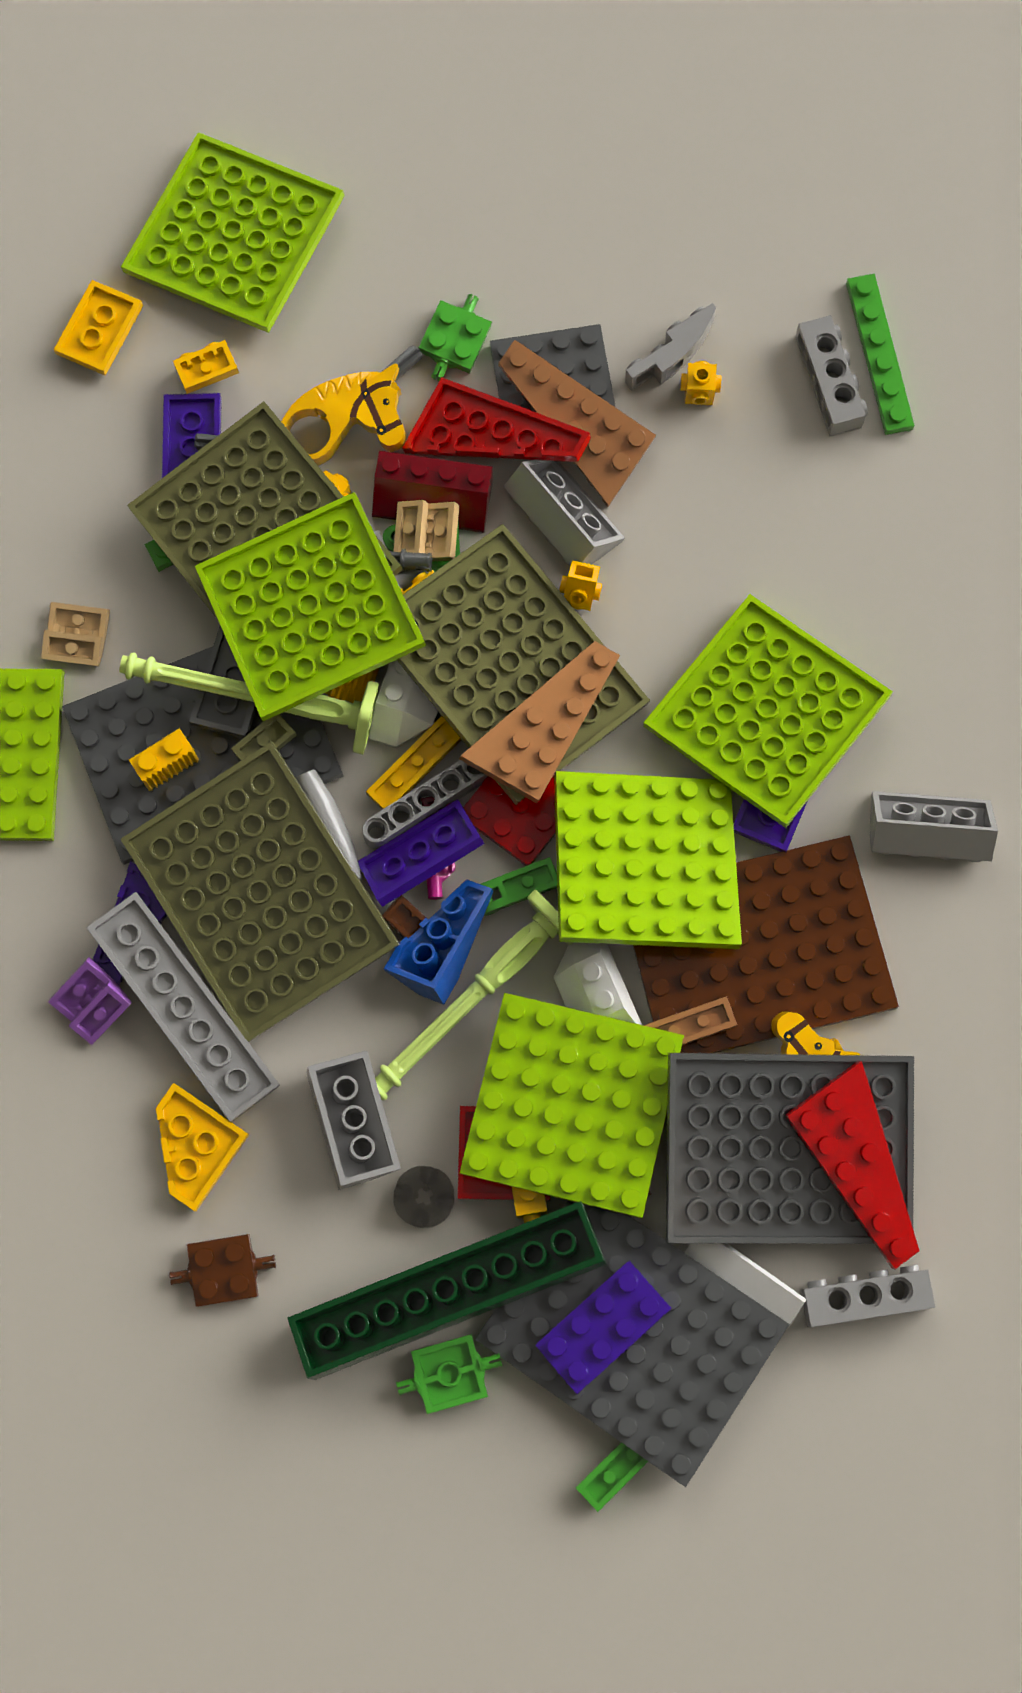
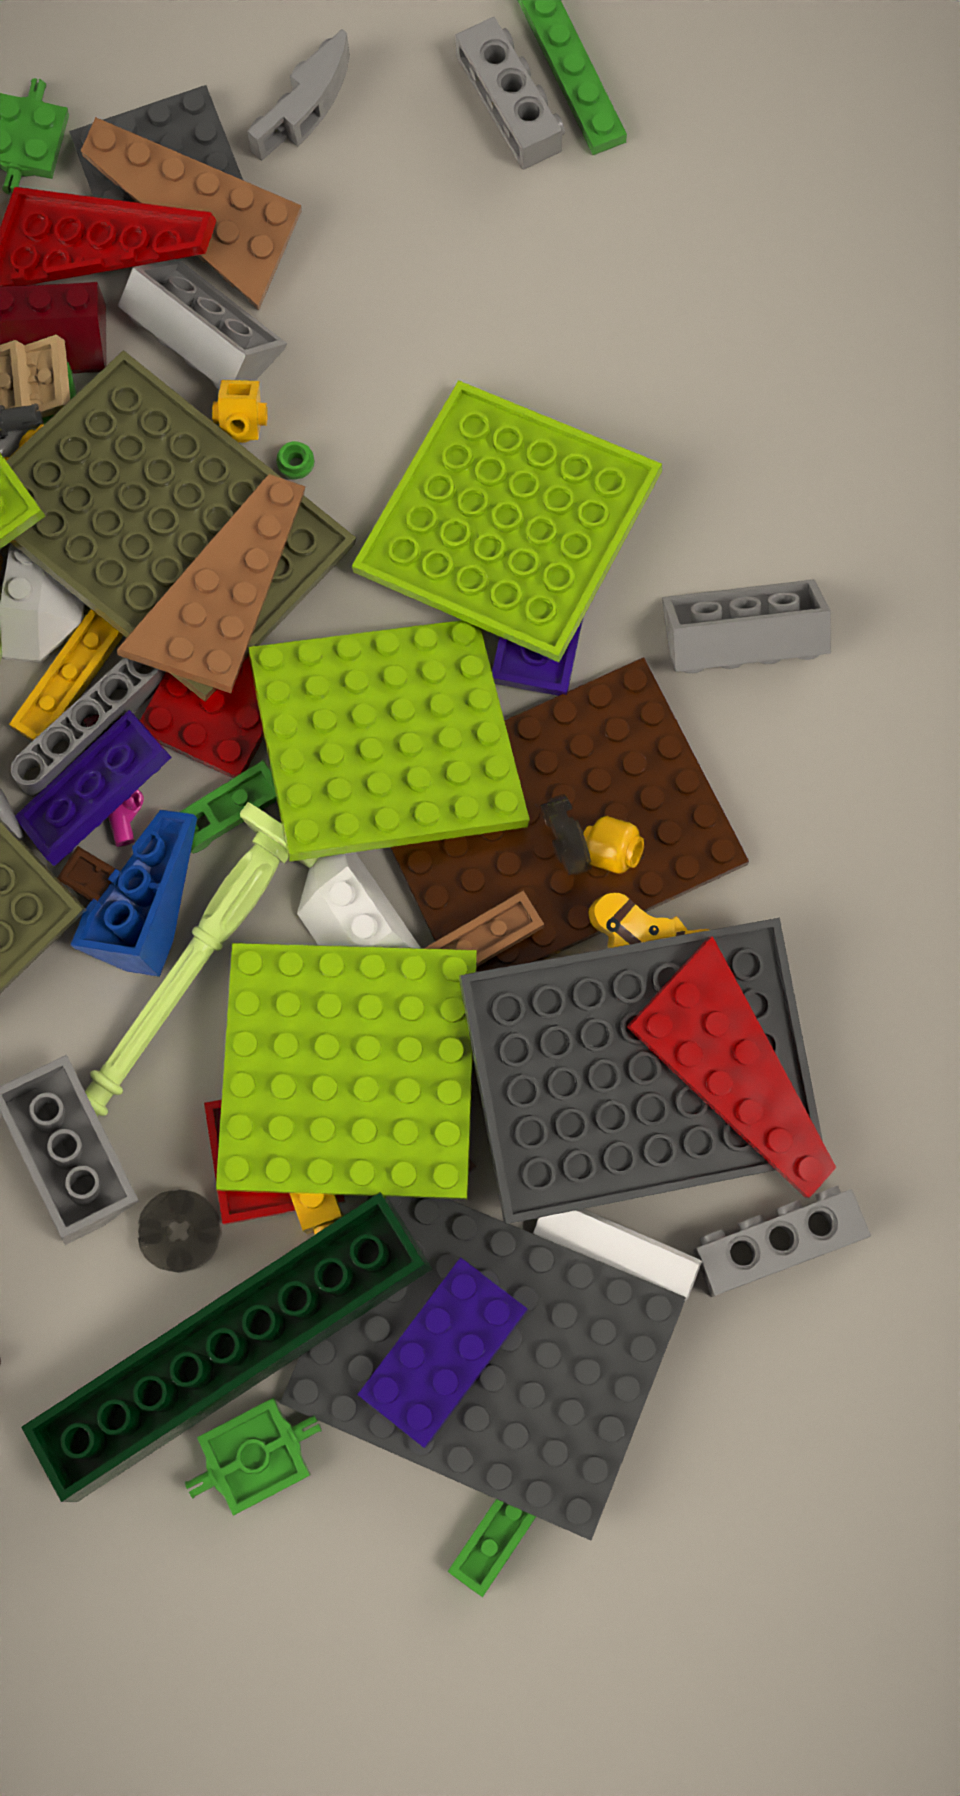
camera: 10 degrees left, 0 degrees up
(614, 622) = (295, 450): none -> bright green plate
(700, 383) = (346, 132): yellow brick -> none
(769, 967) = (569, 842): none -> clear smoke plate
(799, 975) = (614, 844): none -> yellow head

